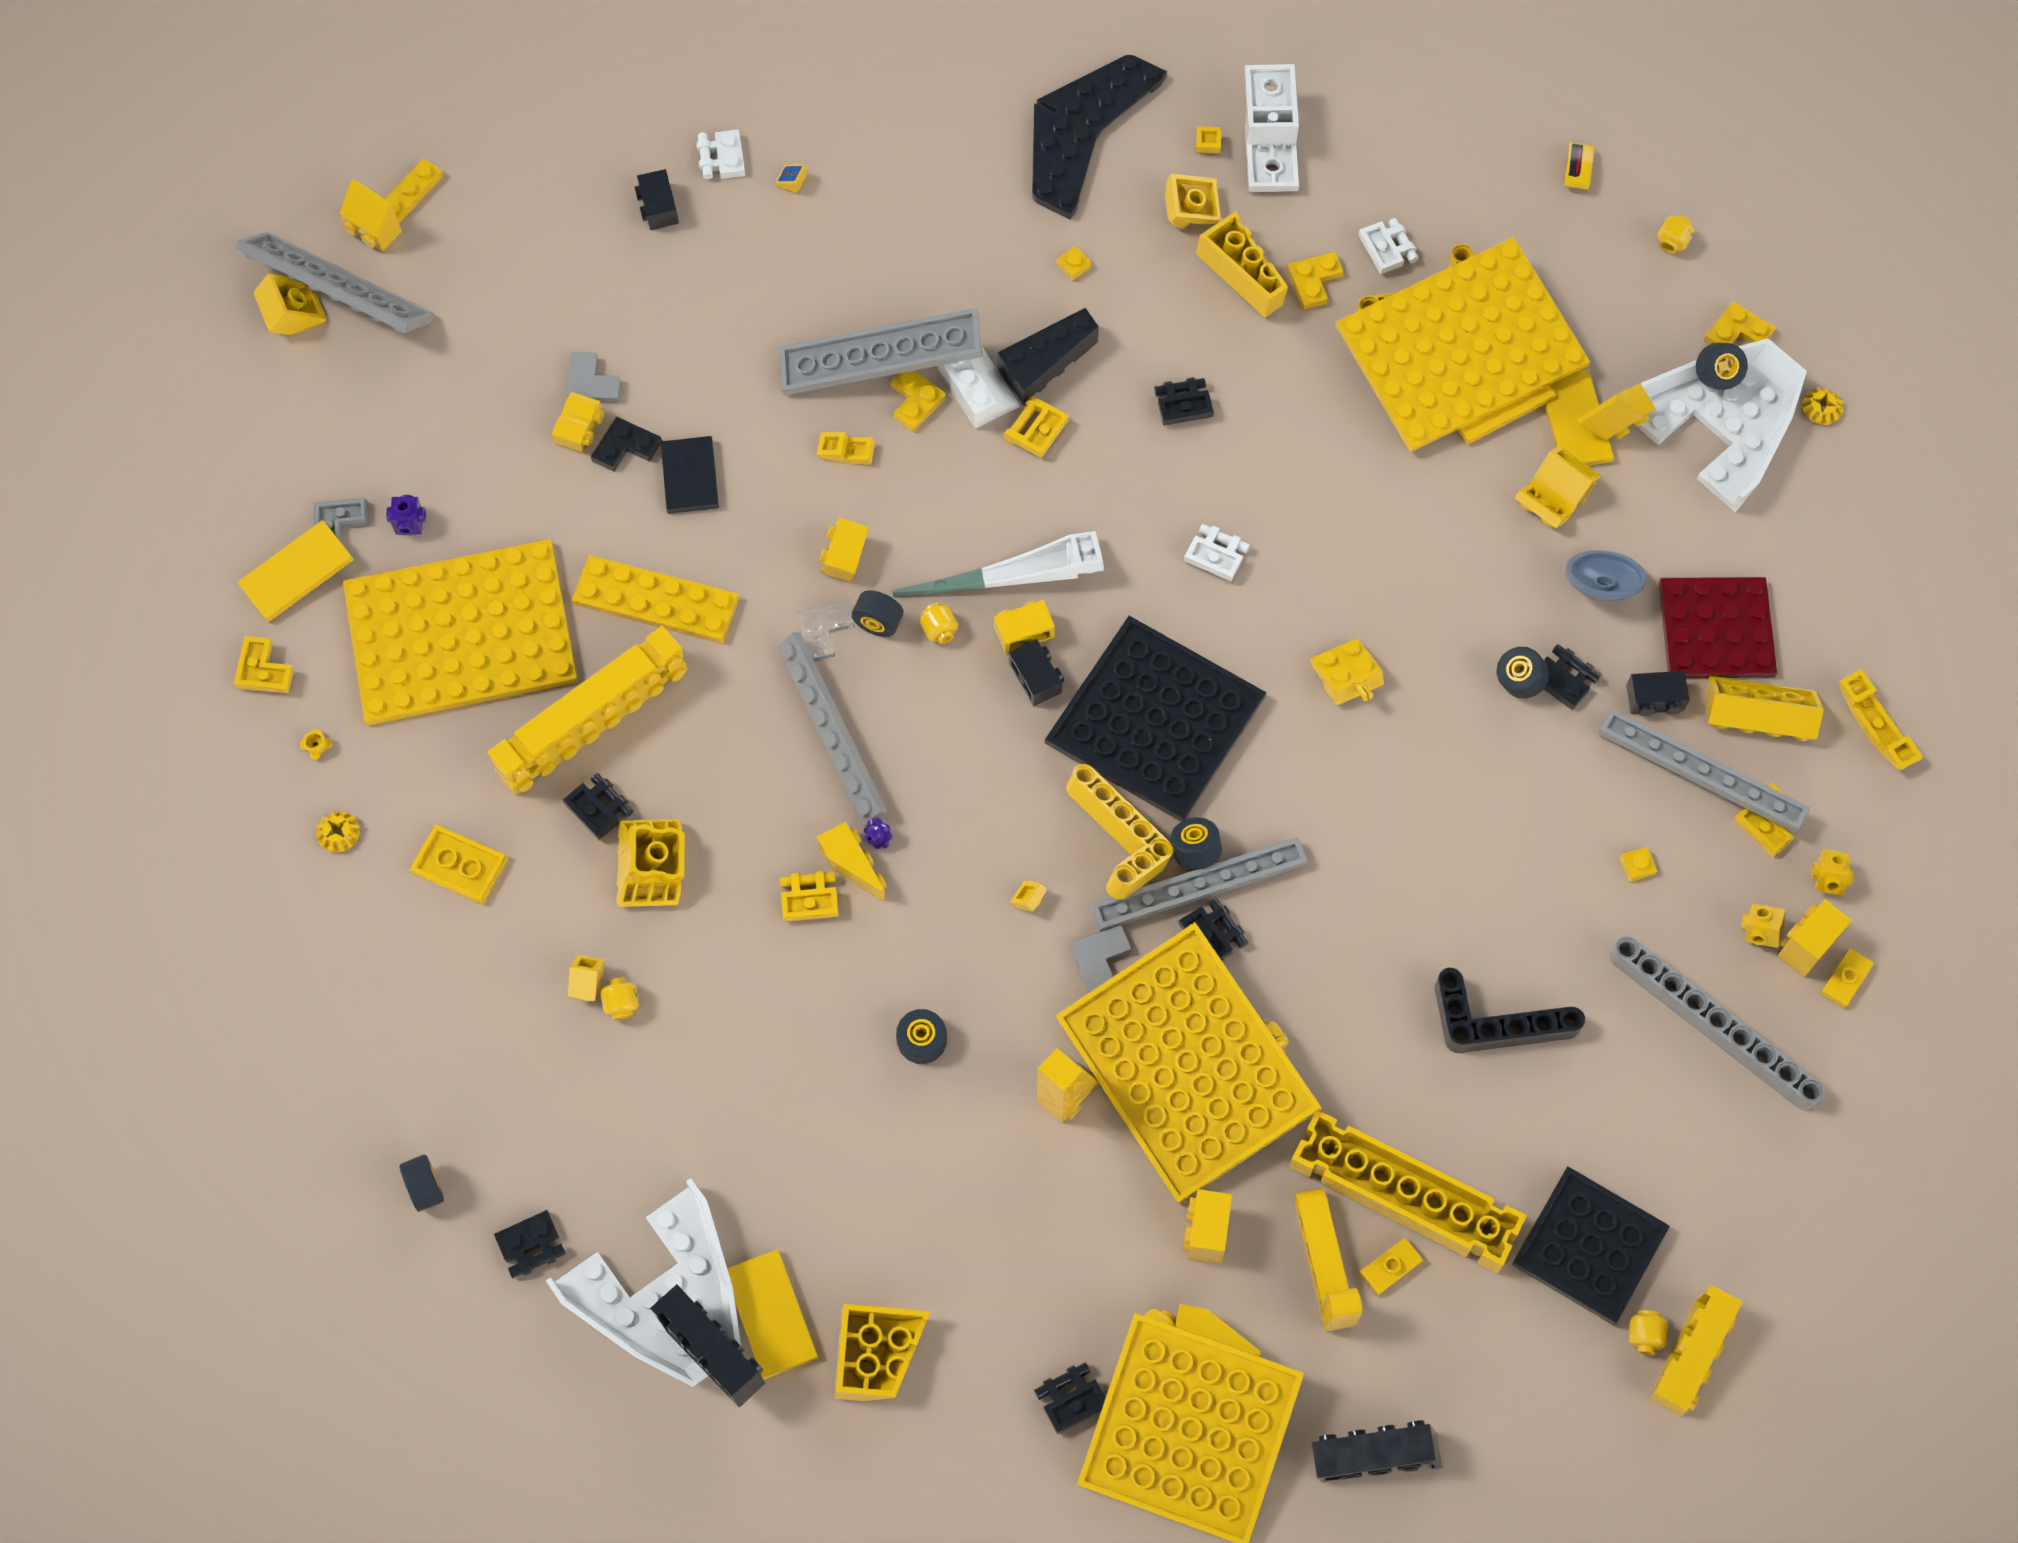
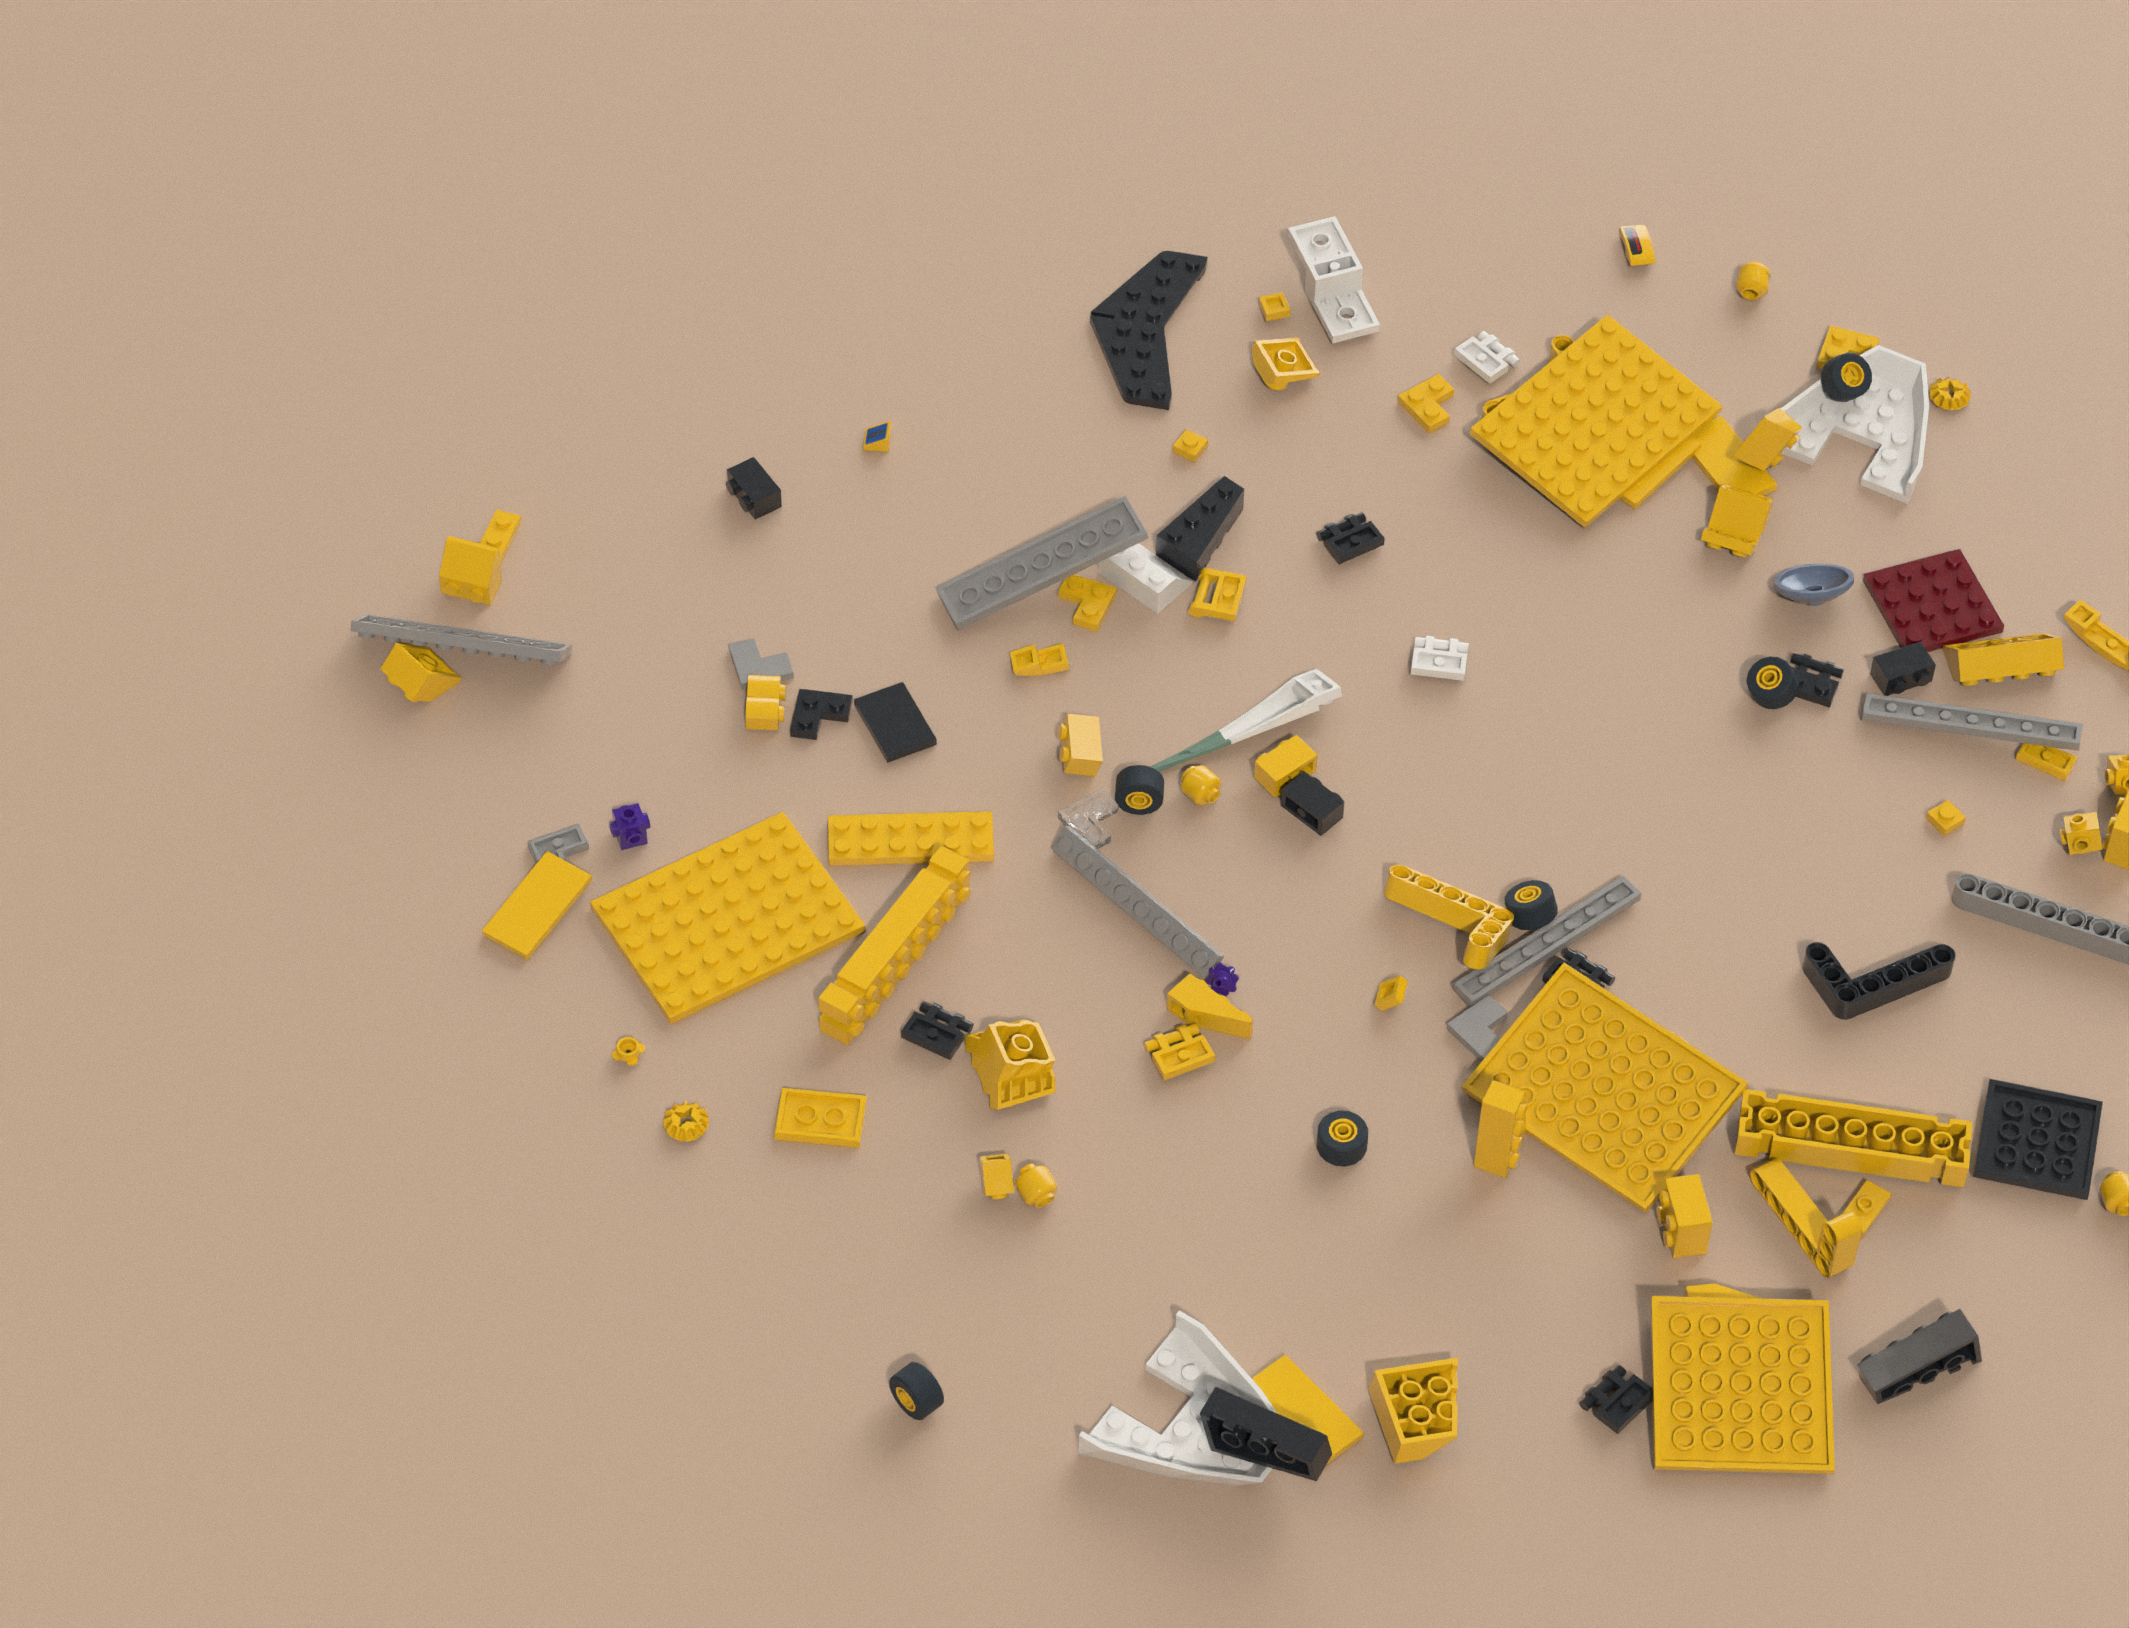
camera: 20 degrees left, 15 degrees down
(256, 672) = (543, 1005): yellow plate -> none
(525, 1237) = (1036, 1414): black plate -> none
(729, 153) = (804, 431): white plate -> none
(1155, 718) = (1444, 812): black plate -> none
(1242, 264) = (1357, 405): yellow wedge -> none
(1348, 672) = (1609, 726): yellow plate -> none

